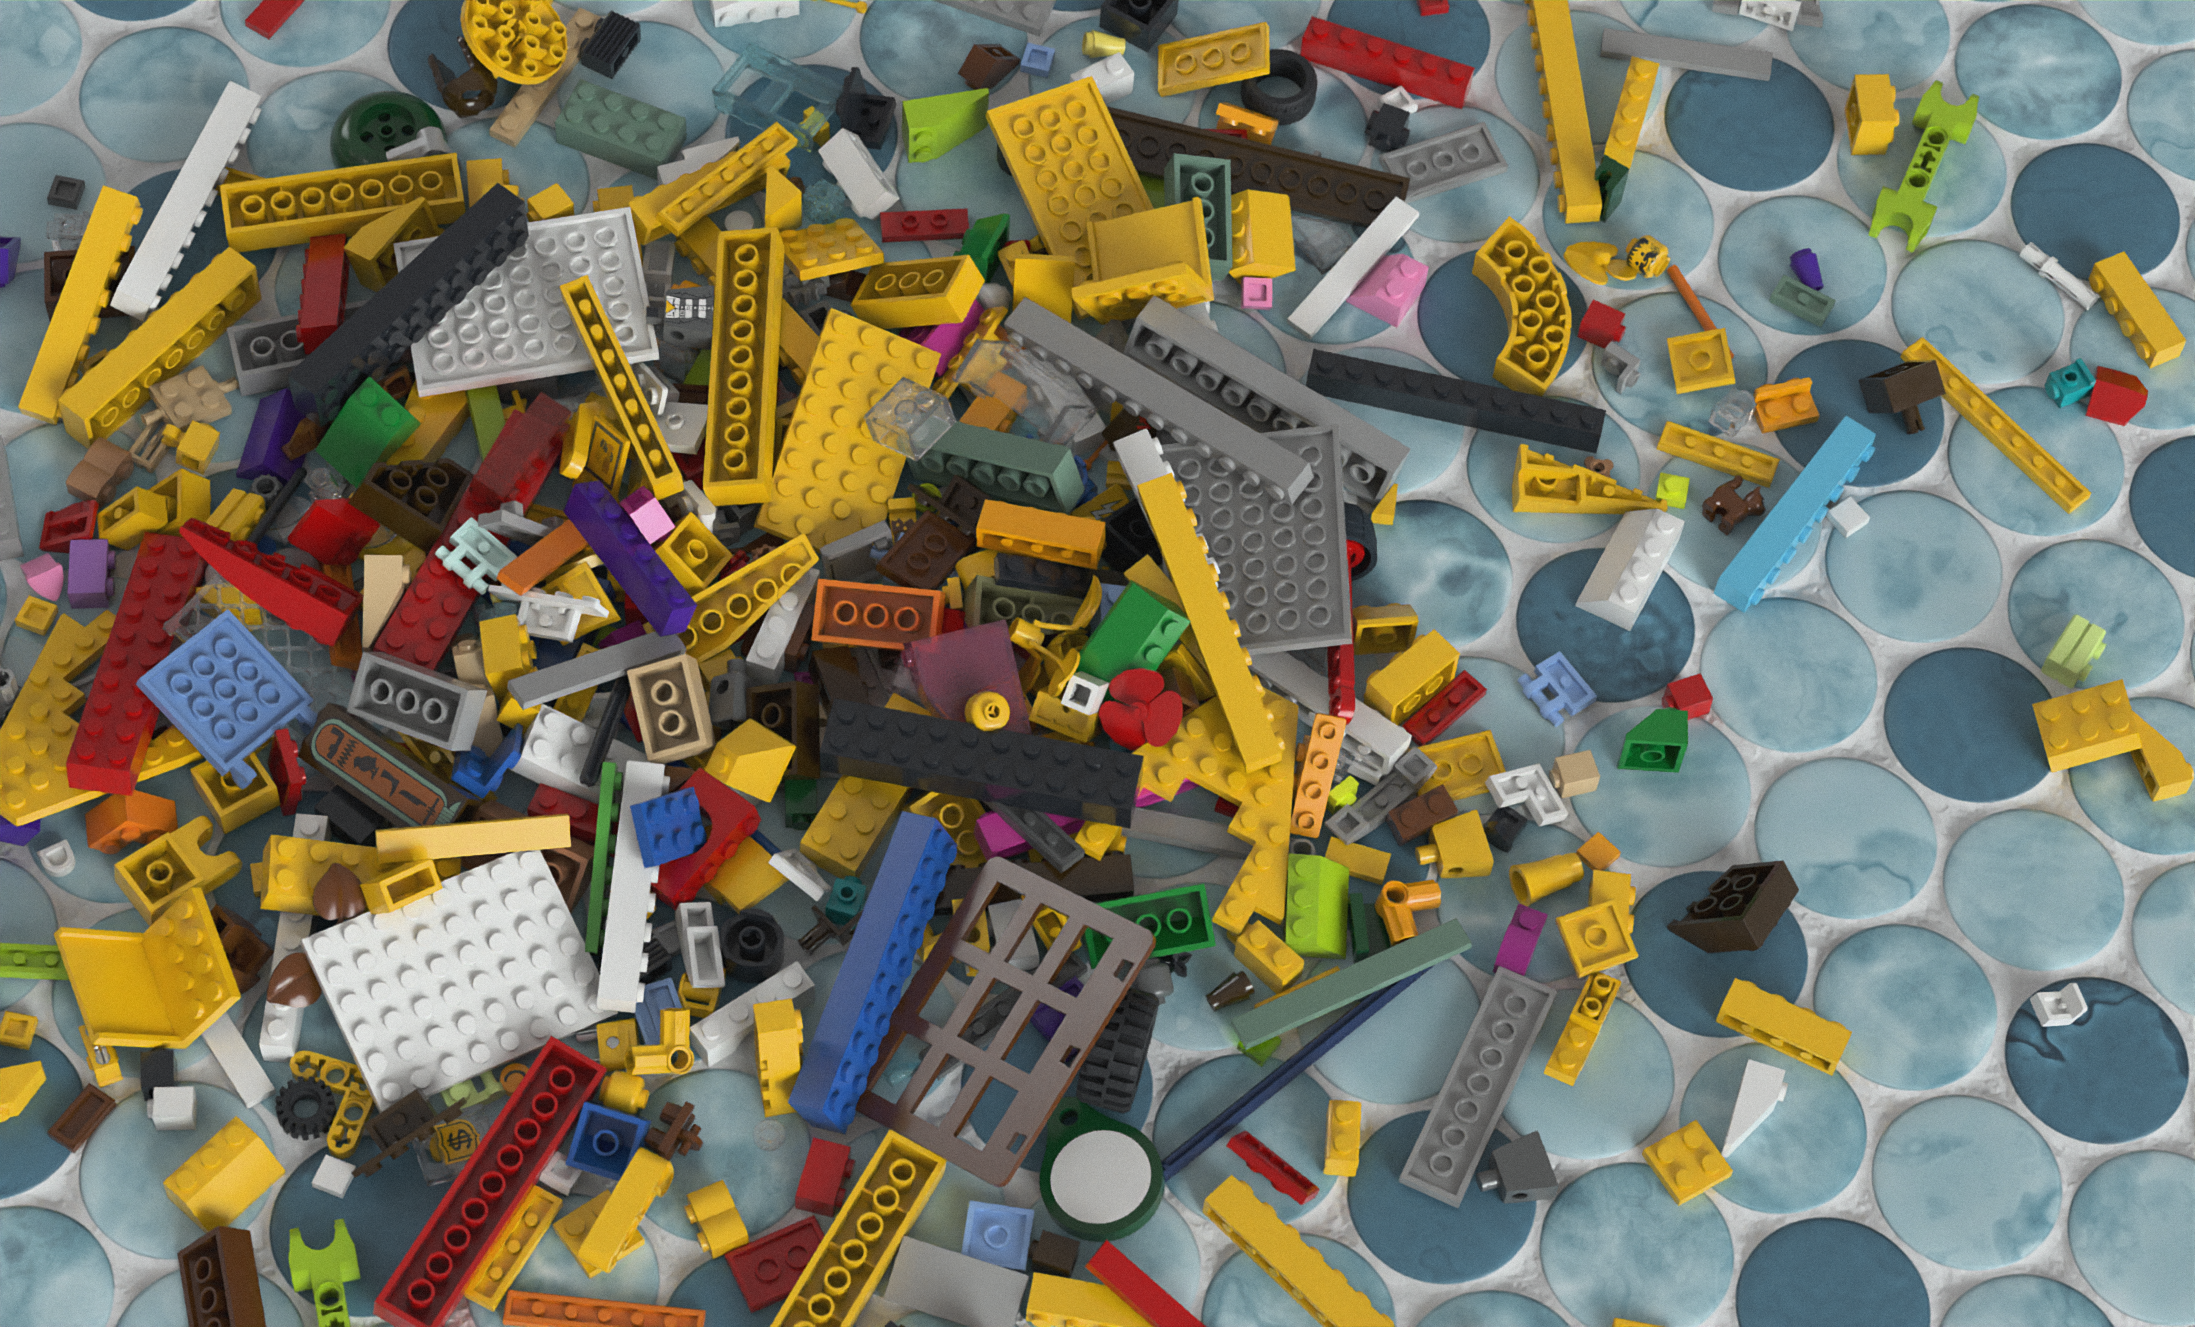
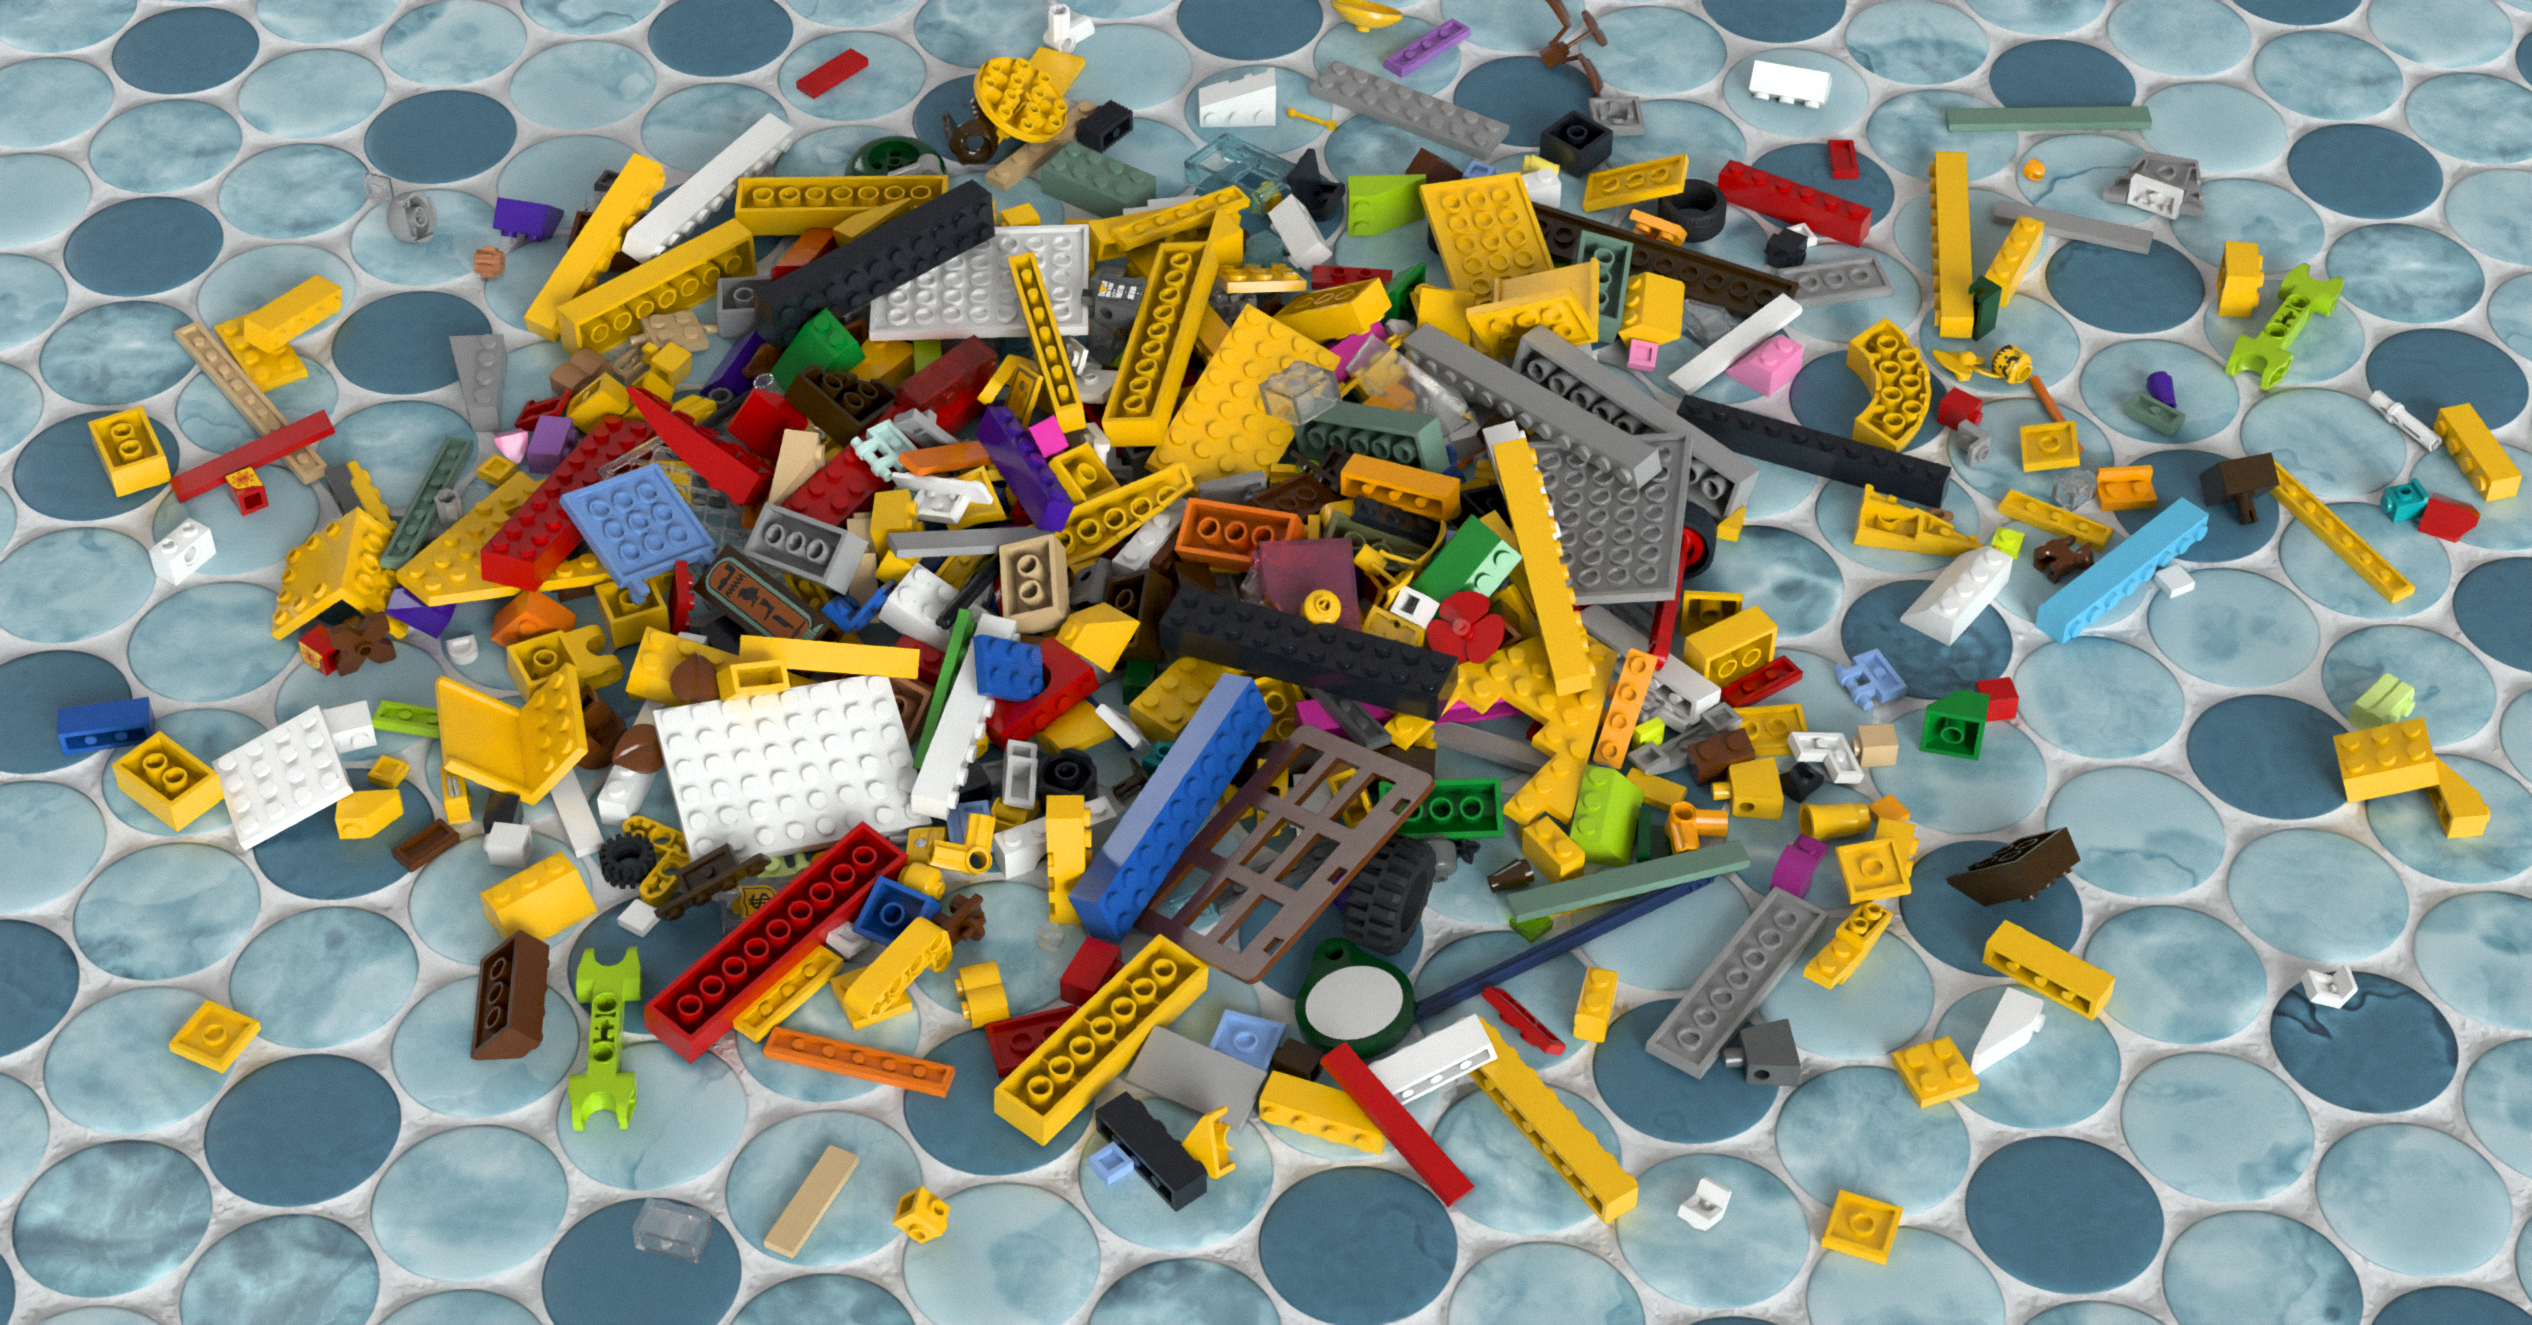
camera: 15 degrees right, 15 degrees down
(1193, 1238) = (1435, 1060): none -> white brick

